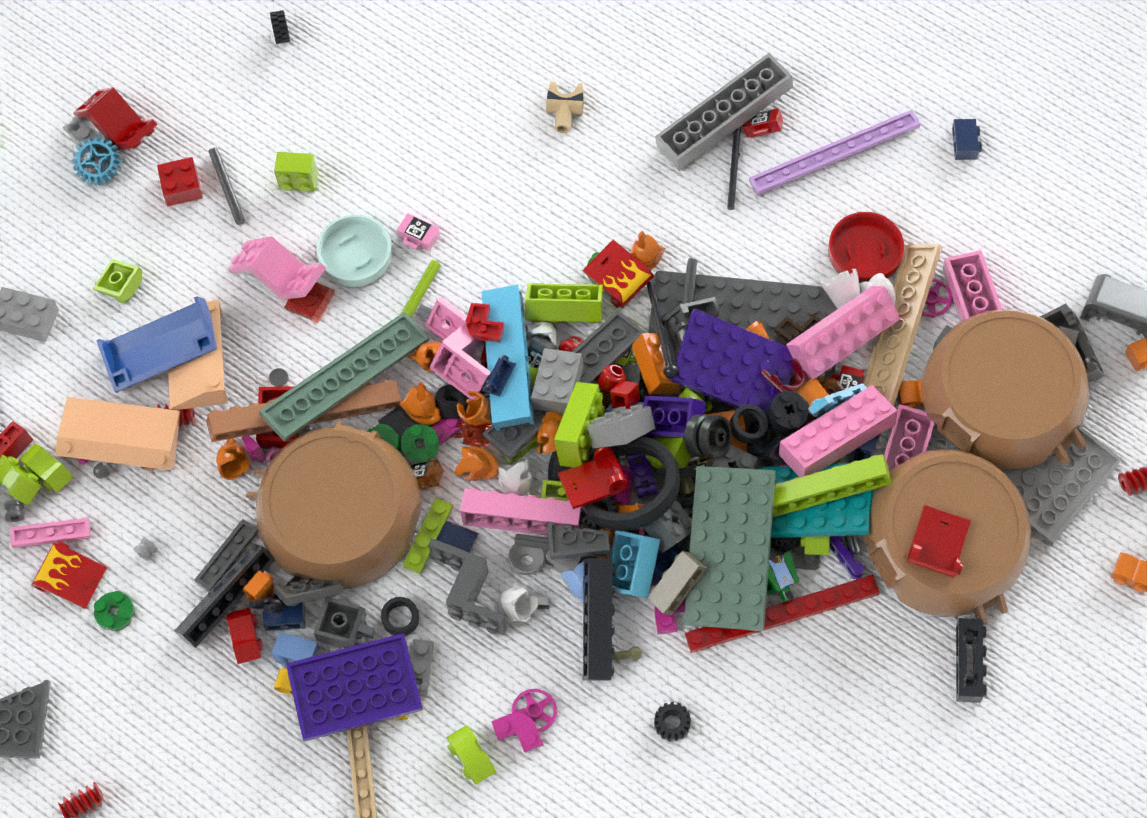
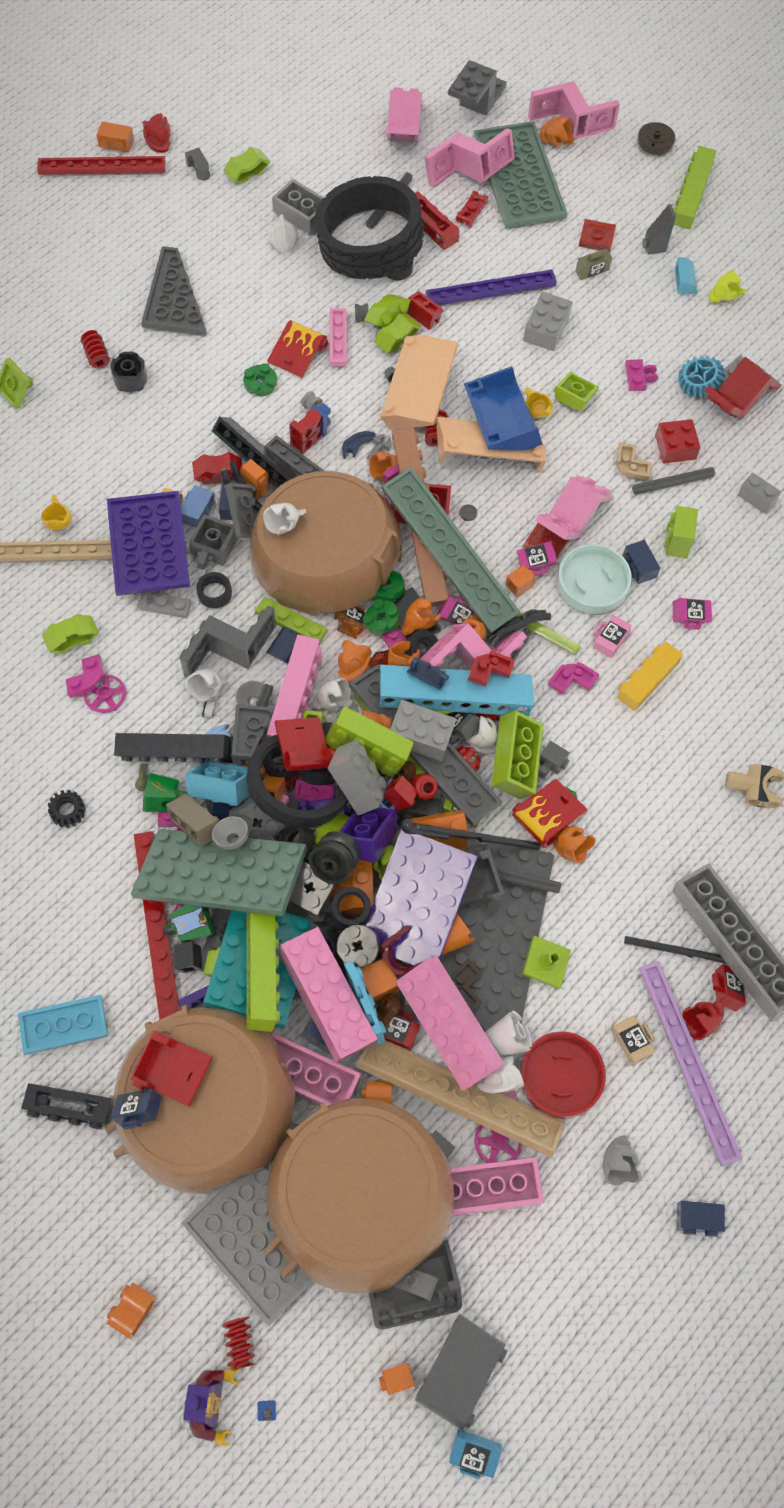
camera: 90 degrees right, 0 degrees up
(90, 226) = (636, 374): none -> dark pink hinge
(105, 749) = (129, 372): none -> black brick
(140, 313) = (538, 404): none -> yellow hair
(186, 541) = (310, 428): none -> red hips
(195, 500) = (354, 442): none -> dark blue piece
(200, 474) = (380, 446): none -> flat silver bar
(210, 227) = (629, 466): none -> tan plate
(240, 106) = (759, 493): none -> light grey brick
(321, 800) = (56, 516): none -> yellow hair
(329, 209) = (641, 561): none -> dark blue brick
(334, 530) = (281, 517): none -> white helmet
(335, 304) = (538, 557): none -> piece
(362, 318) = (520, 580): none -> orange brick
(383, 163) = (692, 611): none -> dark pink piece
(405, 374) = (454, 611): none -> piece
(418, 303) = (516, 624): none -> black piece
(460, 196) = (649, 676): none -> yellow brick
(463, 264) = (571, 673): none -> dark pink plate
(560, 273) = (553, 759): none -> dark grey brick
(646, 626) = (159, 792): none -> green torso
(685, 532) = (228, 828): none -> light grey piece
(764, 268) = (546, 962): none -> lime tile
(798, 140) = (703, 1018): none -> red helmet
(811, 575) = (187, 956): none -> black brick
(823, 195) = (633, 1039): none -> tan piece
(894, 681) = (62, 1024): none -> medium azure plate
(931, 200) = (620, 1162): none -> light grey helmet
(978, 569) = (136, 1108): none -> dark blue piece

